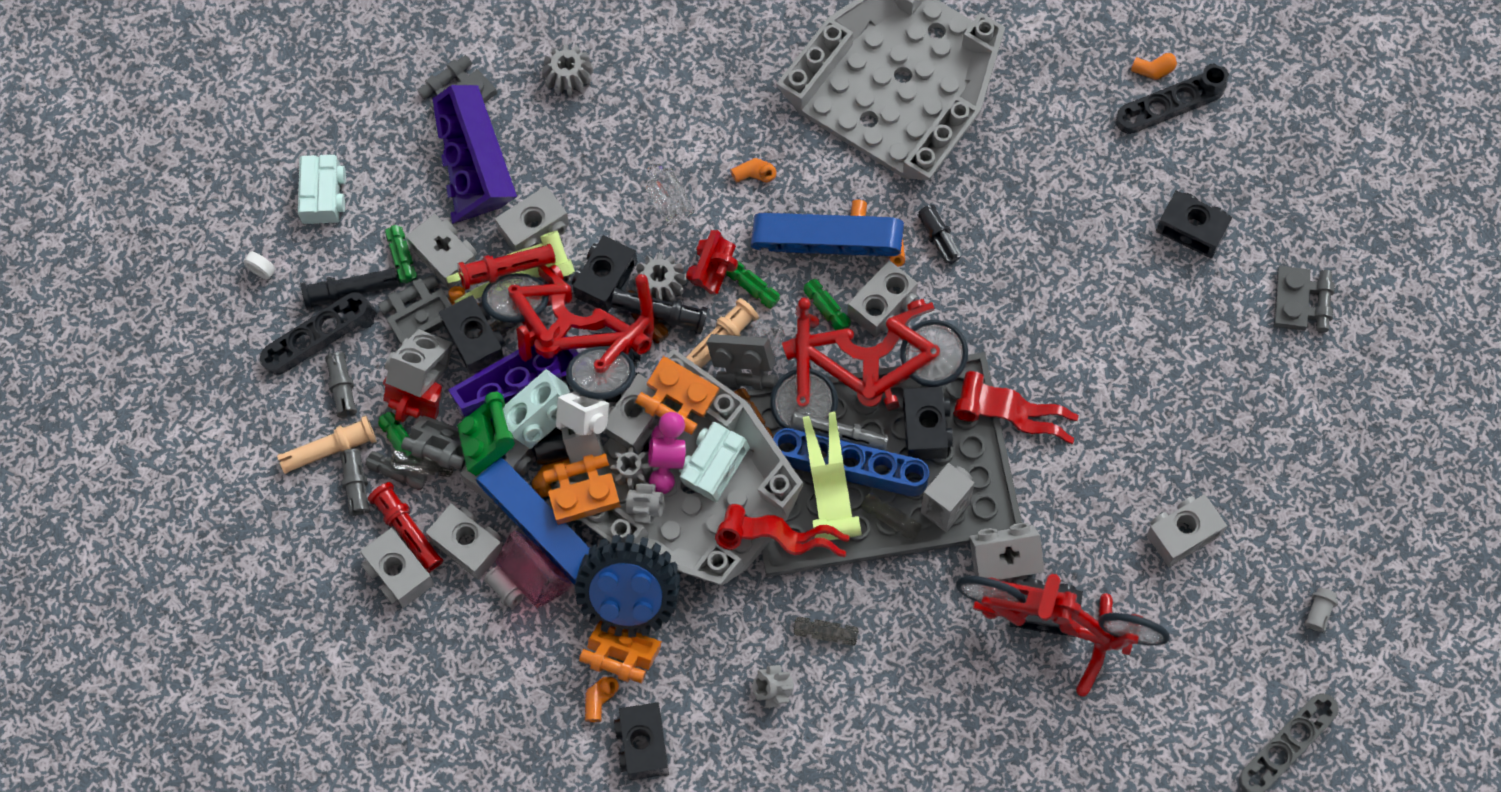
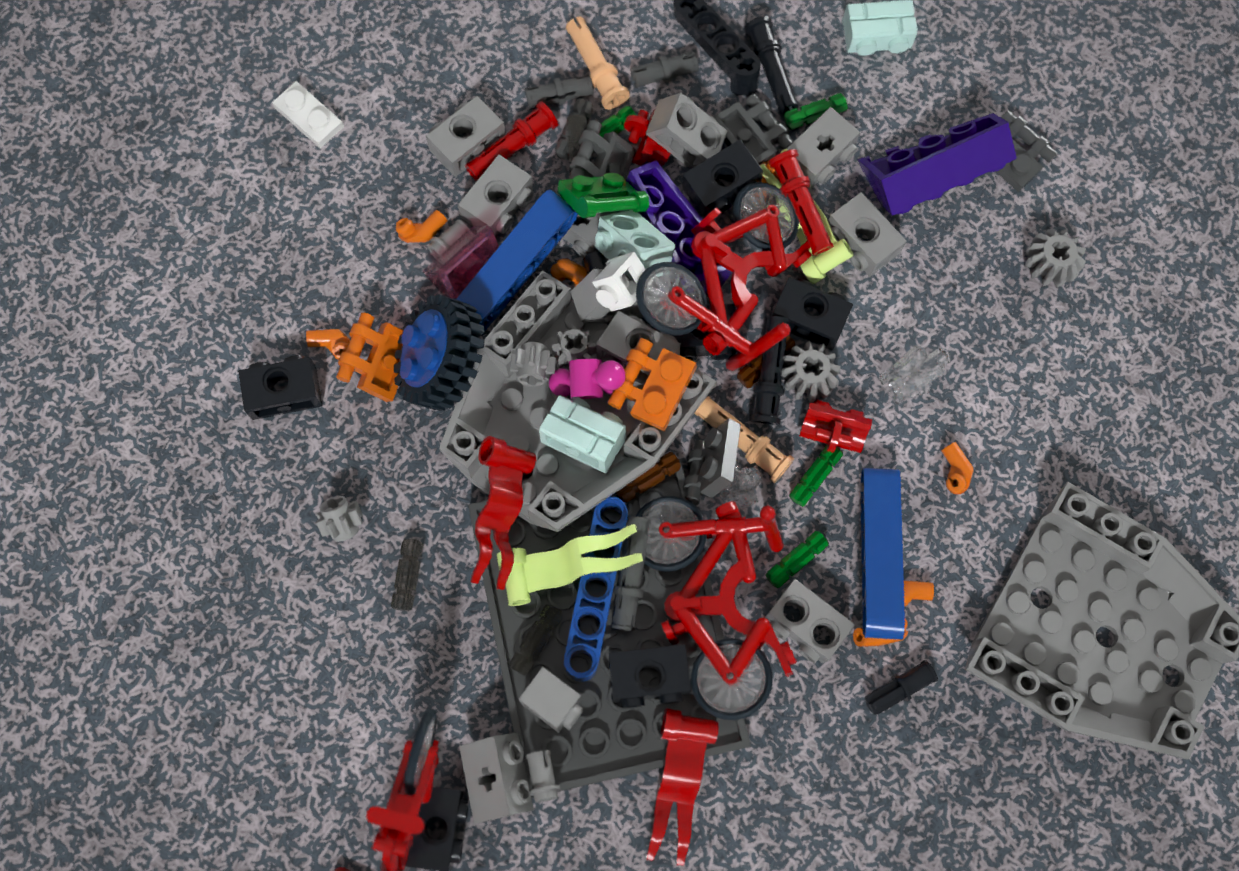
camera: 80 degrees right, 5 degrees up
(353, 723) = (308, 114): none -> white plate
(491, 614) = (420, 232): none -> orange arm
(584, 497) = (534, 300): orange plate -> none
(1007, 514) = (542, 776): none -> light grey pin

